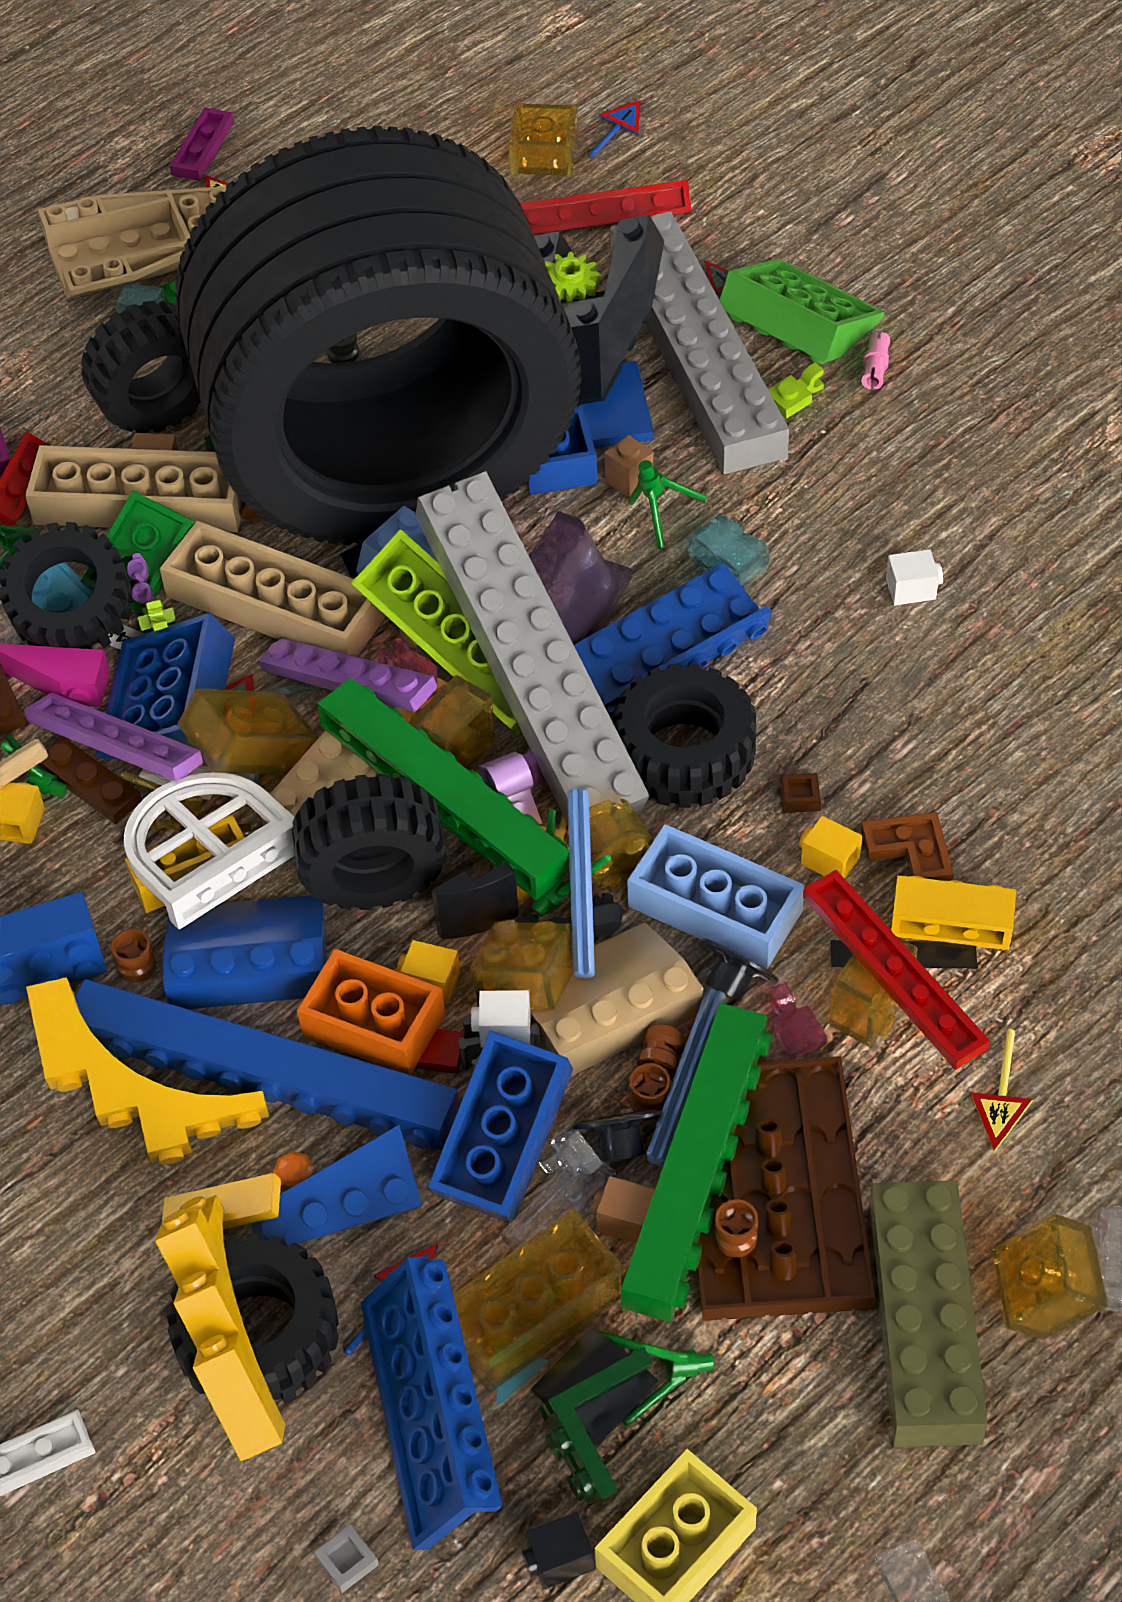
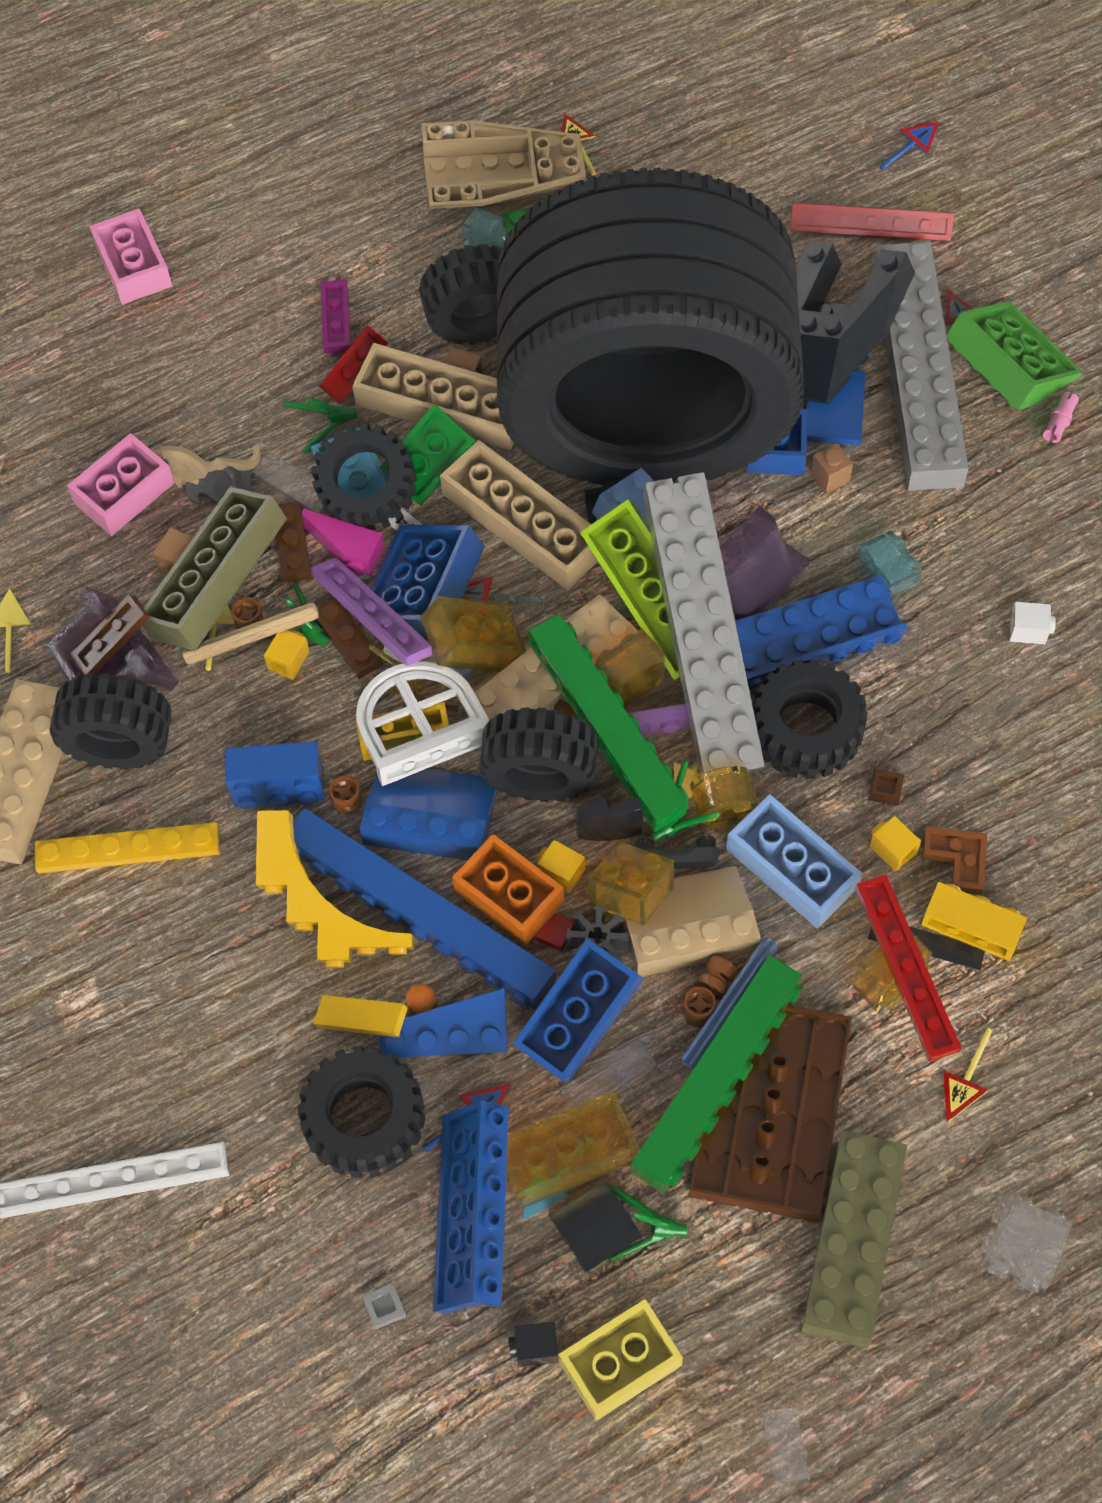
camera: 15 degrees right, 10 degrees up
(139, 572) = (424, 472): medium lavender piece -> none
(155, 616) = (428, 513): lime plate -> none
(201, 144) = (568, 85): magenta plate -> none
(207, 1305) = (327, 1104): yellow arch -> none
(331, 668) = (558, 599): medium lavender plate -> none
(409, 660) = (611, 617): clear pink plate -> none
(502, 1013) = (602, 924): white brick -> none
(514, 779) = (662, 729): lavender plate -> none
(543, 139) = (846, 146): clear yellow brick -> none
(569, 1437) = (561, 1265): dark green bracket -> none
(572, 1155) = (625, 1045): clear plate -> none
(573, 277) = (828, 290): lime gear -> none
(581, 884) = (690, 829): medium blue axle -> none
(619, 1133) = (664, 1038): black wheel -> none
(621, 1208) = (652, 1095): medium nougat brick -> none
(652, 485) = (843, 494): green plant -> none
(733, 971) = (790, 927): black wheel -> none
(736, 1217) = (732, 1129): dark orange wheel -> none
(794, 394) = (983, 432): lime plate -> none
(795, 1028) = (825, 984): clear pink plate -> none
(1049, 1277) = (953, 1239): clear yellow brick -> none

